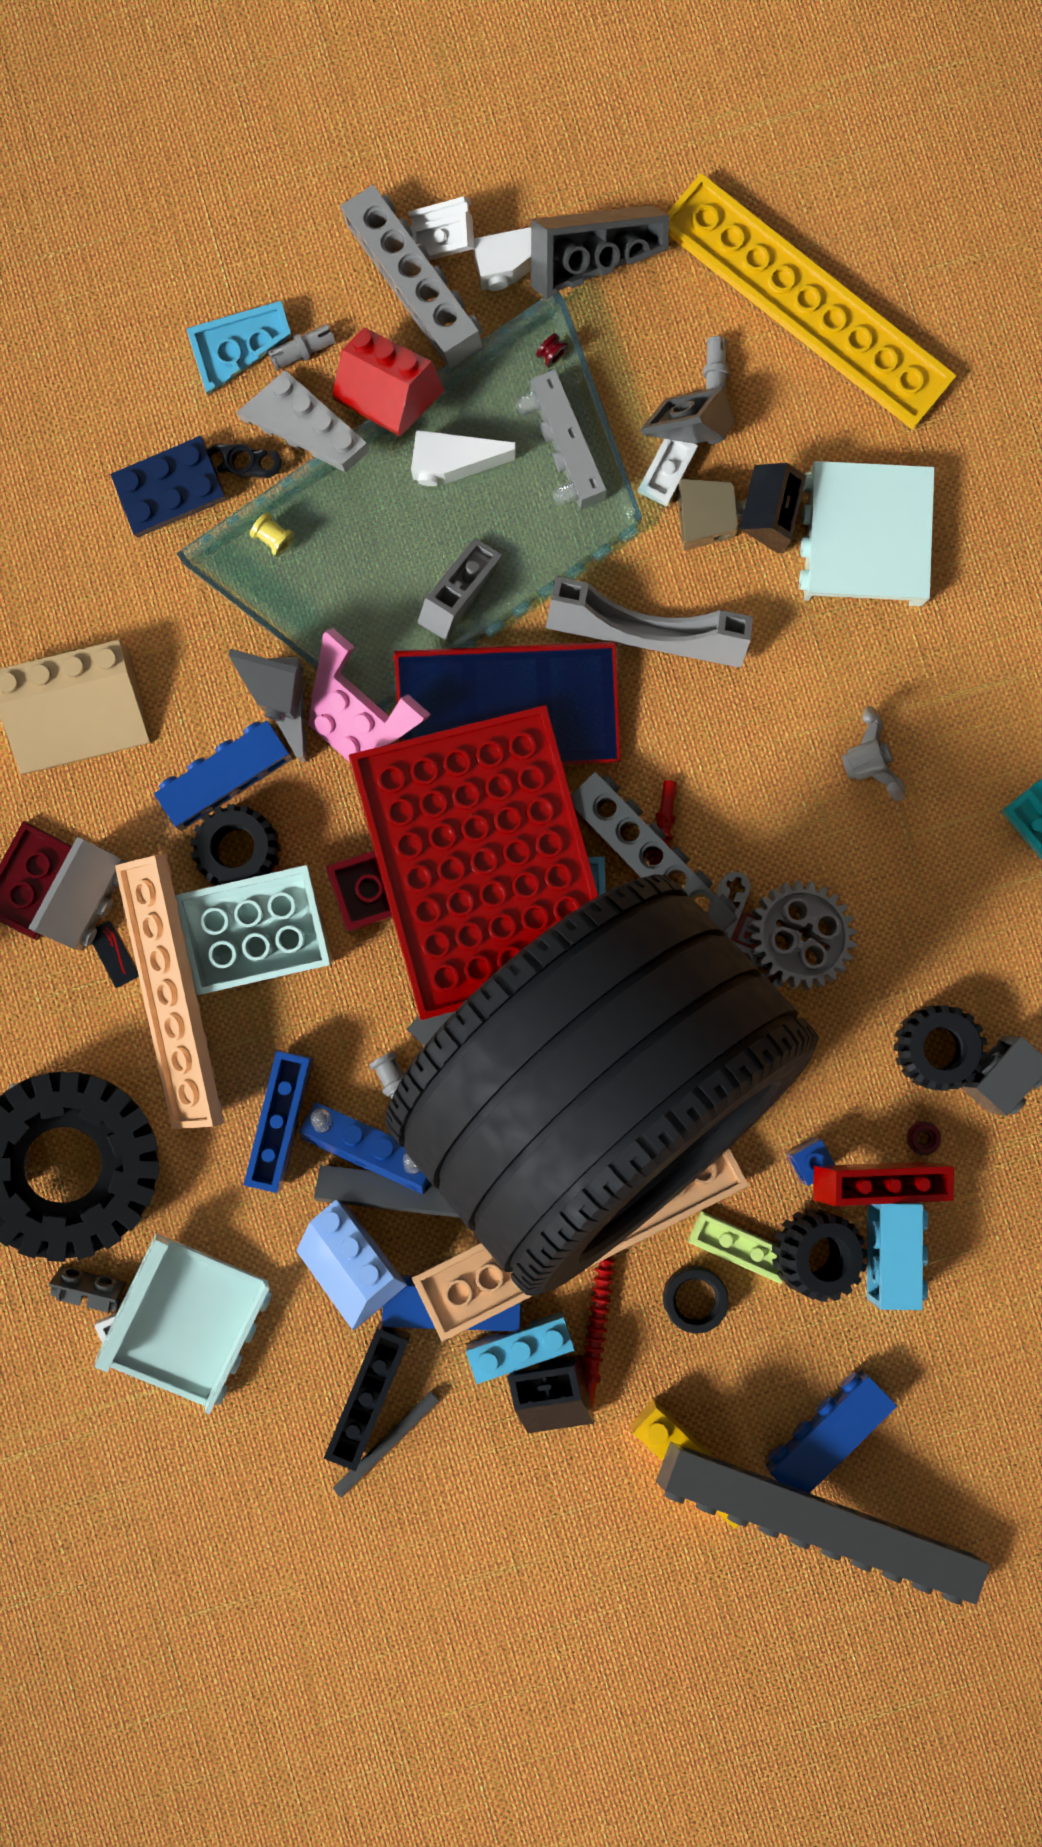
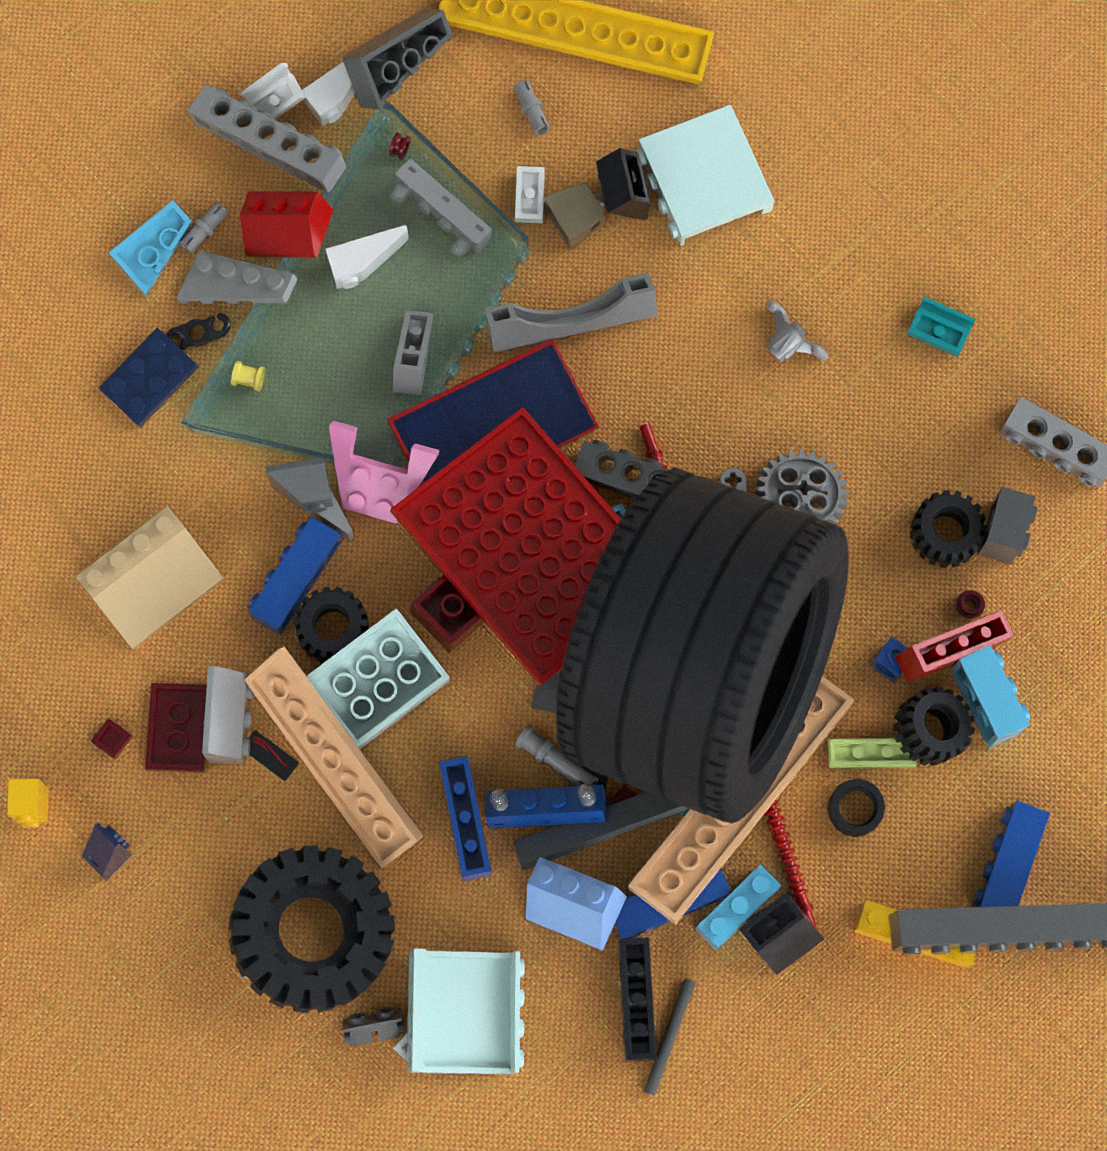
camera: 25 degrees left, 10 degrees down
(692, 417) = (531, 148): dark grey slope -> none

